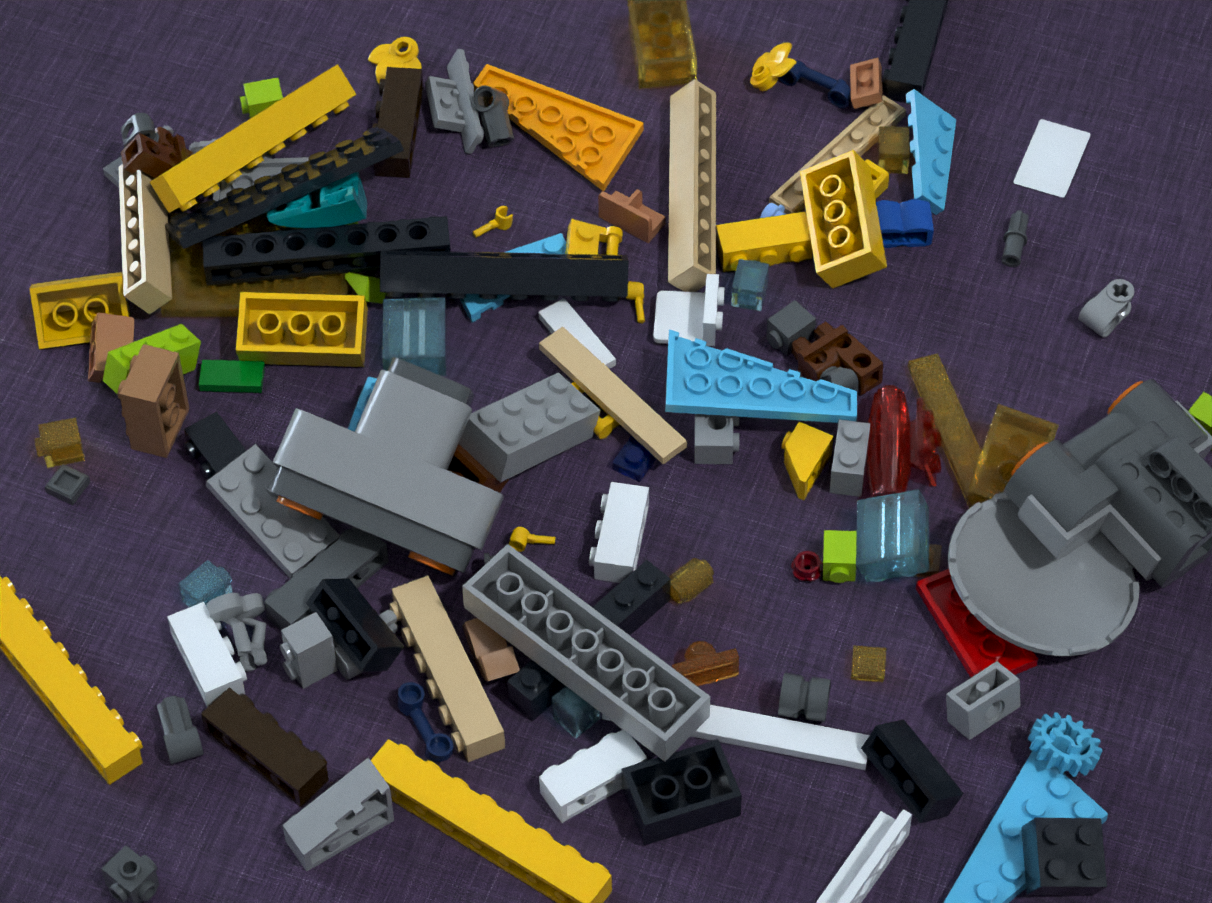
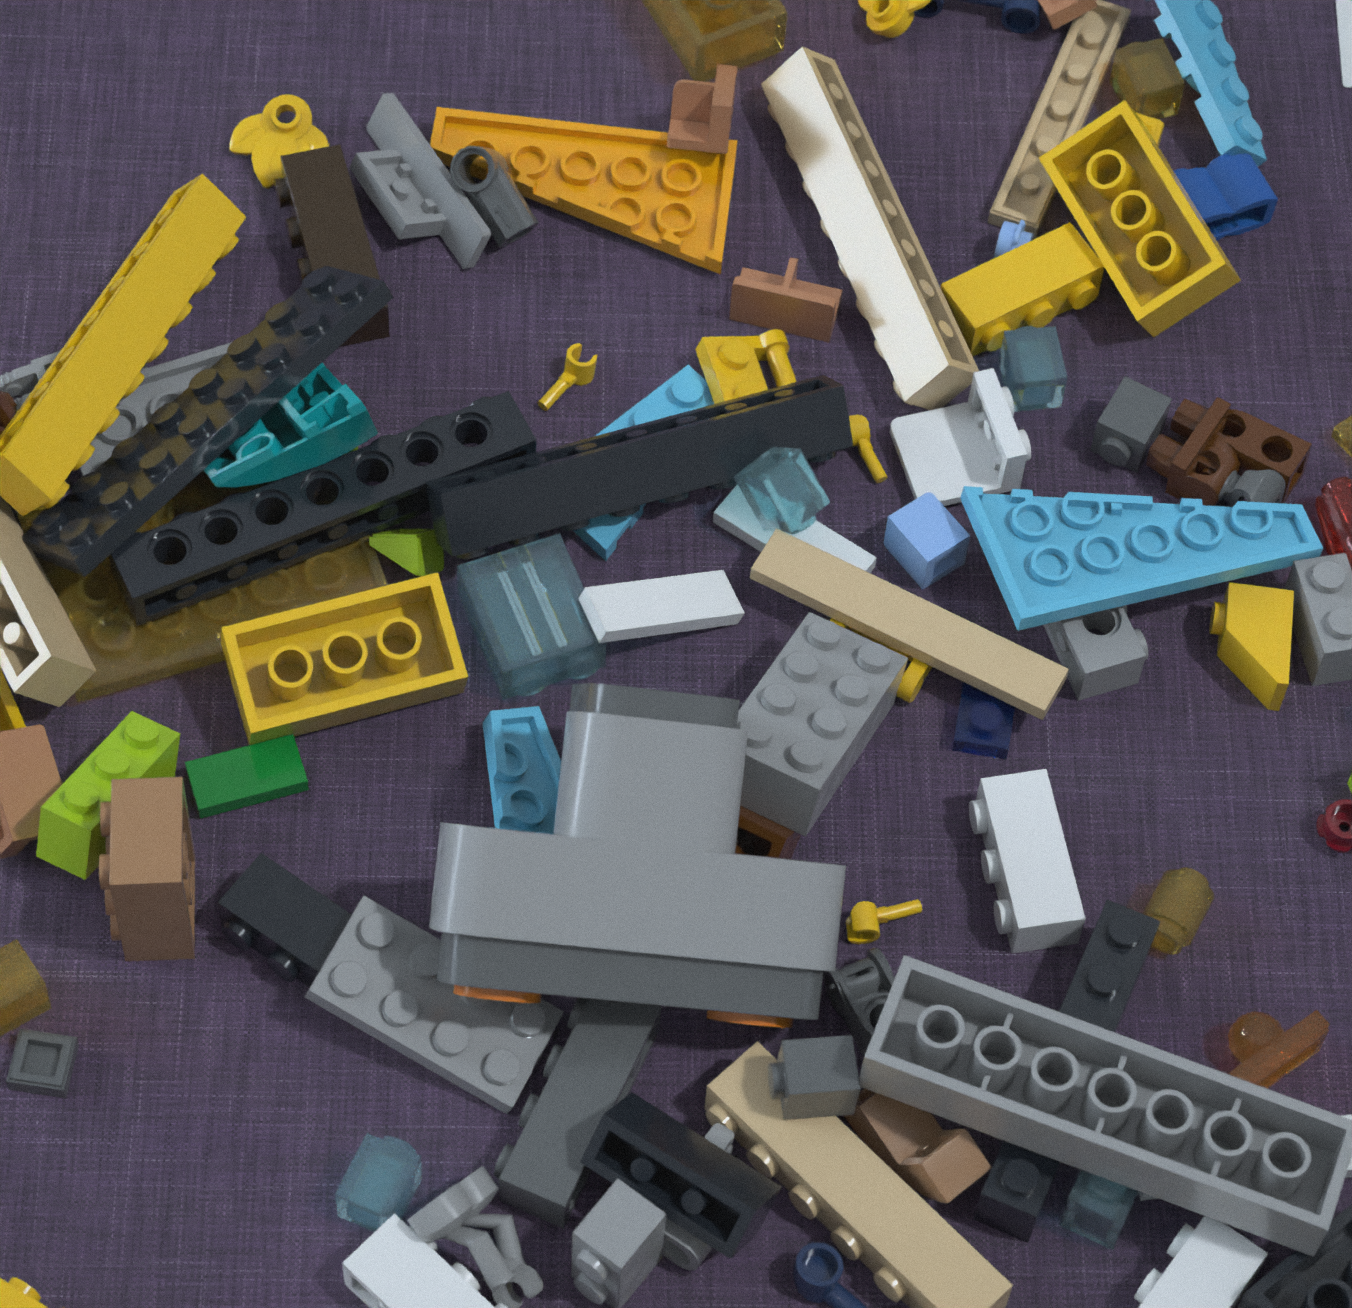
camera: 25 degrees left, 5 degrees up
(260, 96) = (84, 267): lime brick -> none
(443, 598) = (815, 1077): none -> dark grey brick
(484, 349) = (661, 606): none -> white tile
(574, 308) = (782, 490): none -> clear light blue brick
(631, 102) = (703, 112): none -> nougat panel
(646, 357) = (926, 540): none -> light blue panel

